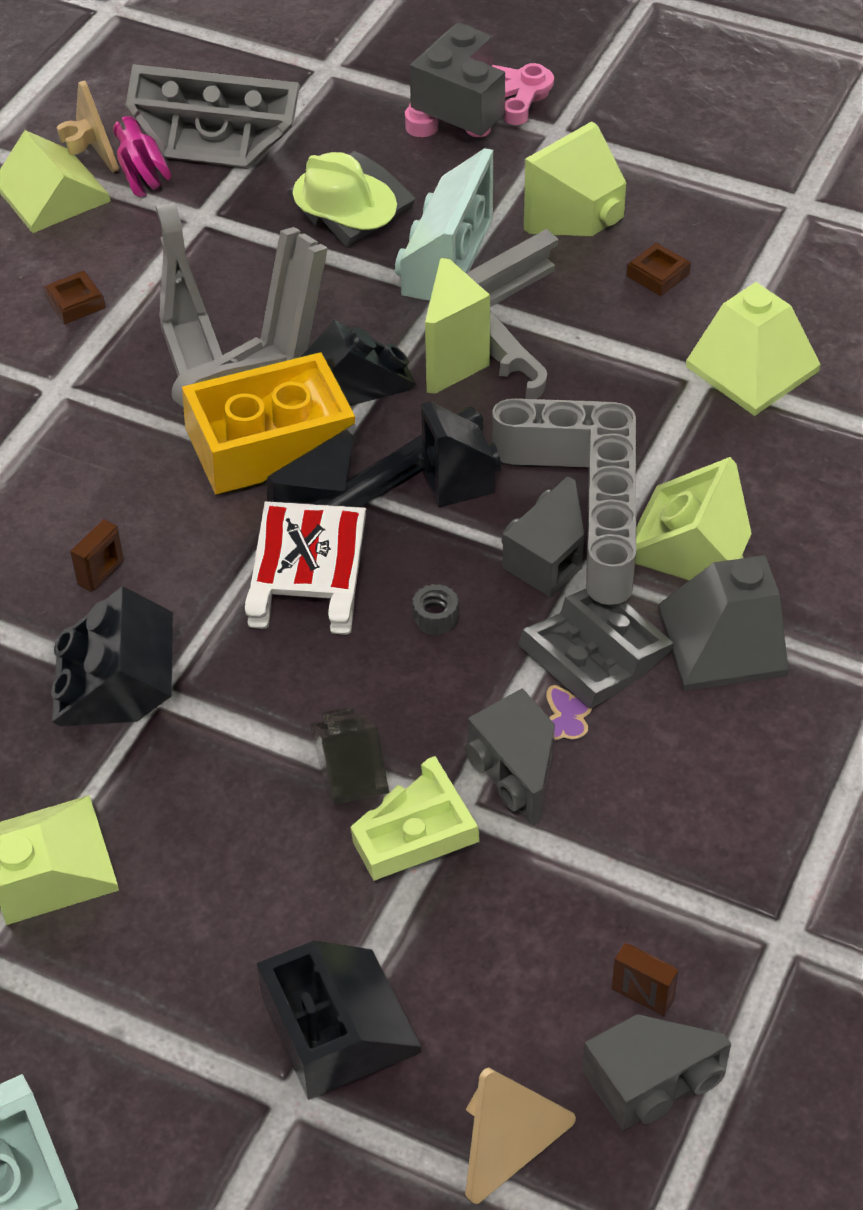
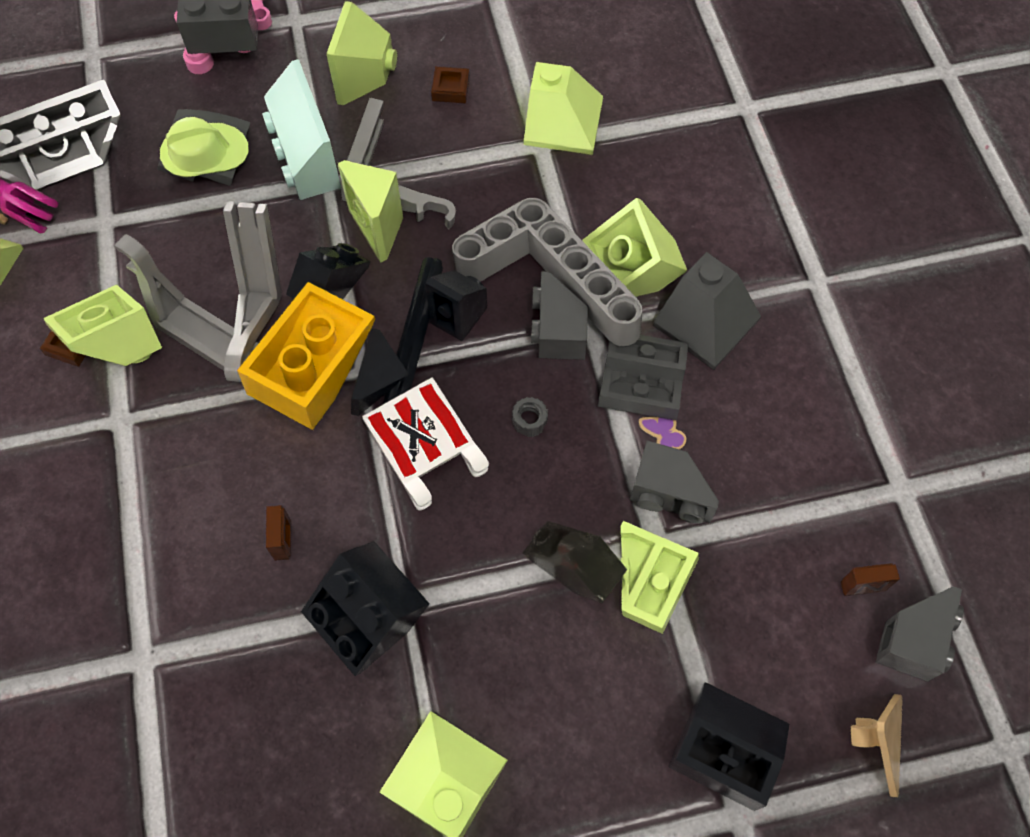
camera: 40 degrees left, 15 degrees up
(109, 298) = (106, 328): none -> yellowish green slope

